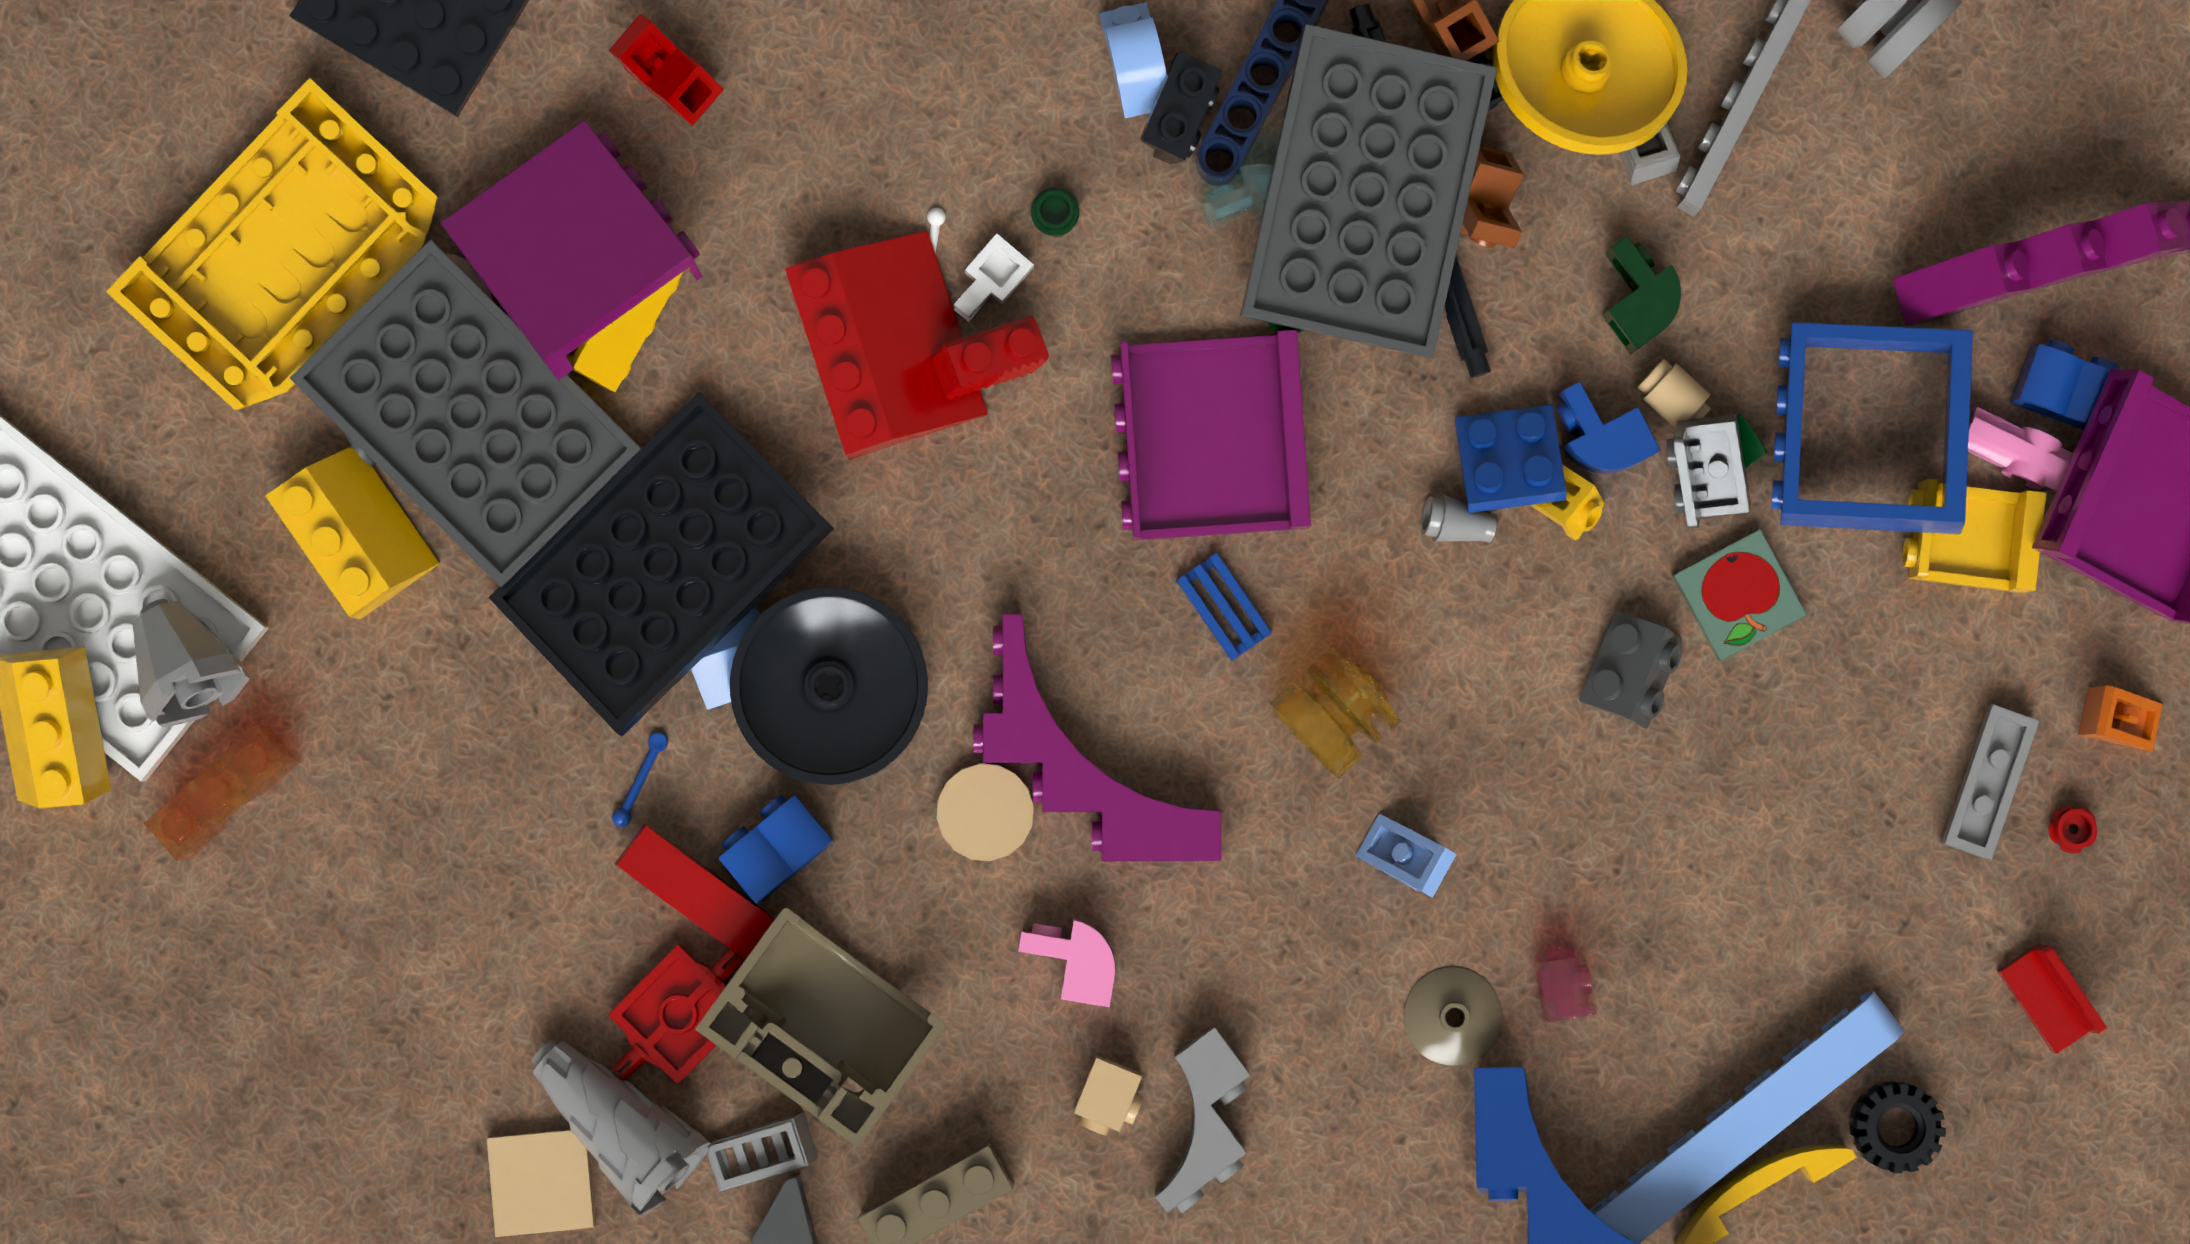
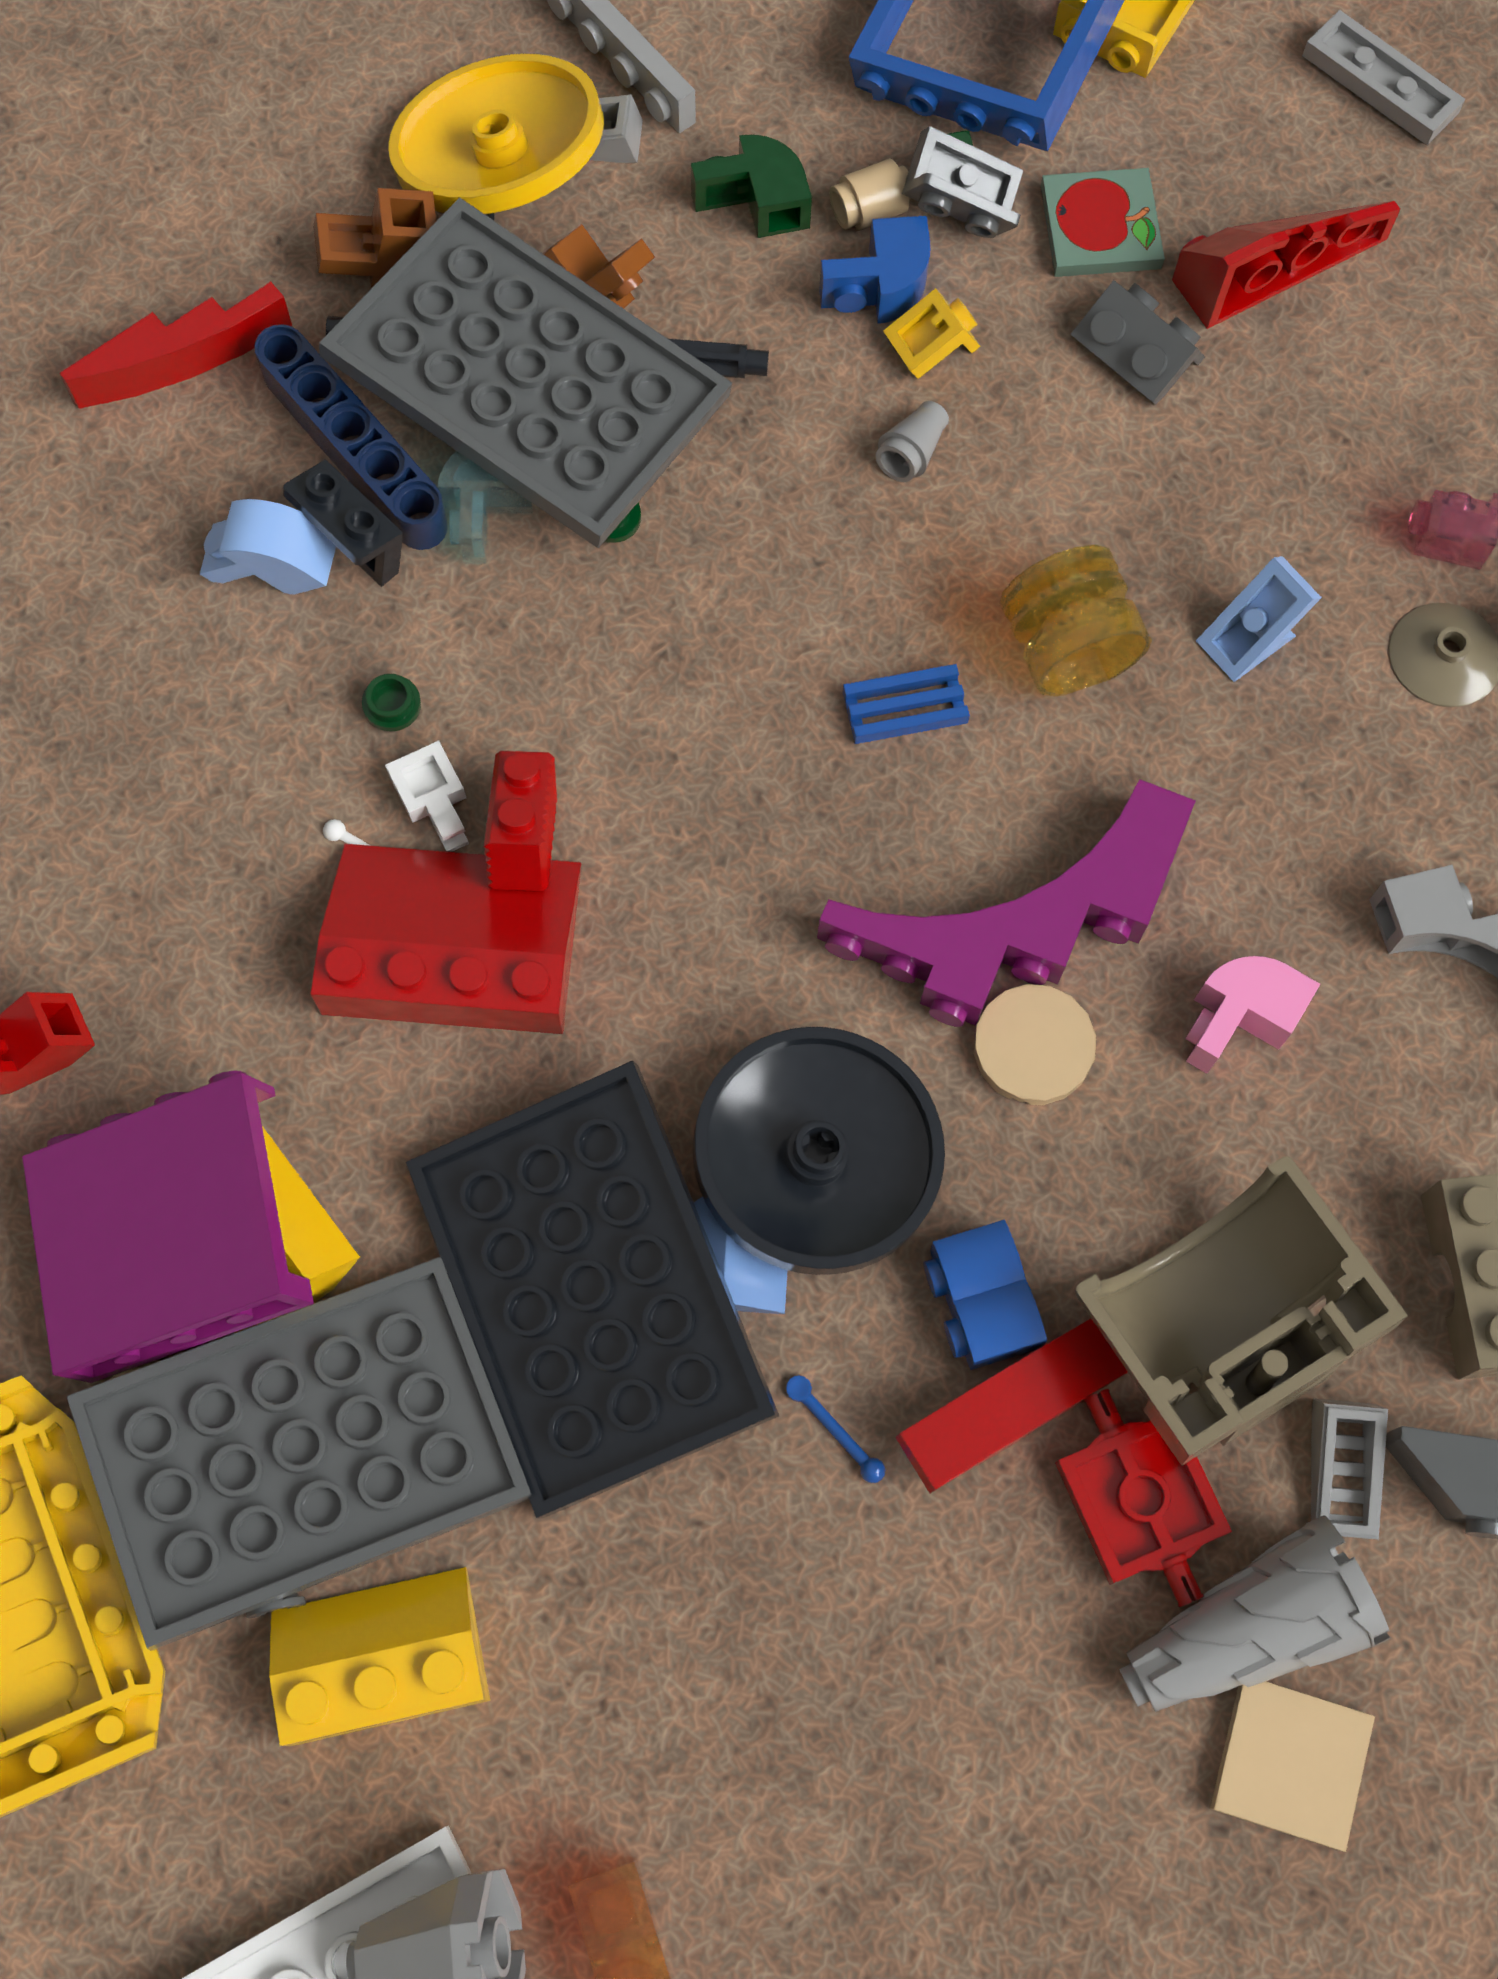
camera: 70 degrees left, 15 degrees down
(1108, 1096) = (1418, 1035): tan brick -> none
(1212, 437) = (716, 636): magenta panel -> none
(1510, 458) = (870, 362): blue plate -> none
(1745, 736) = (1261, 259): none -> red wedge
(2085, 824) = (1462, 17): red plate -> none

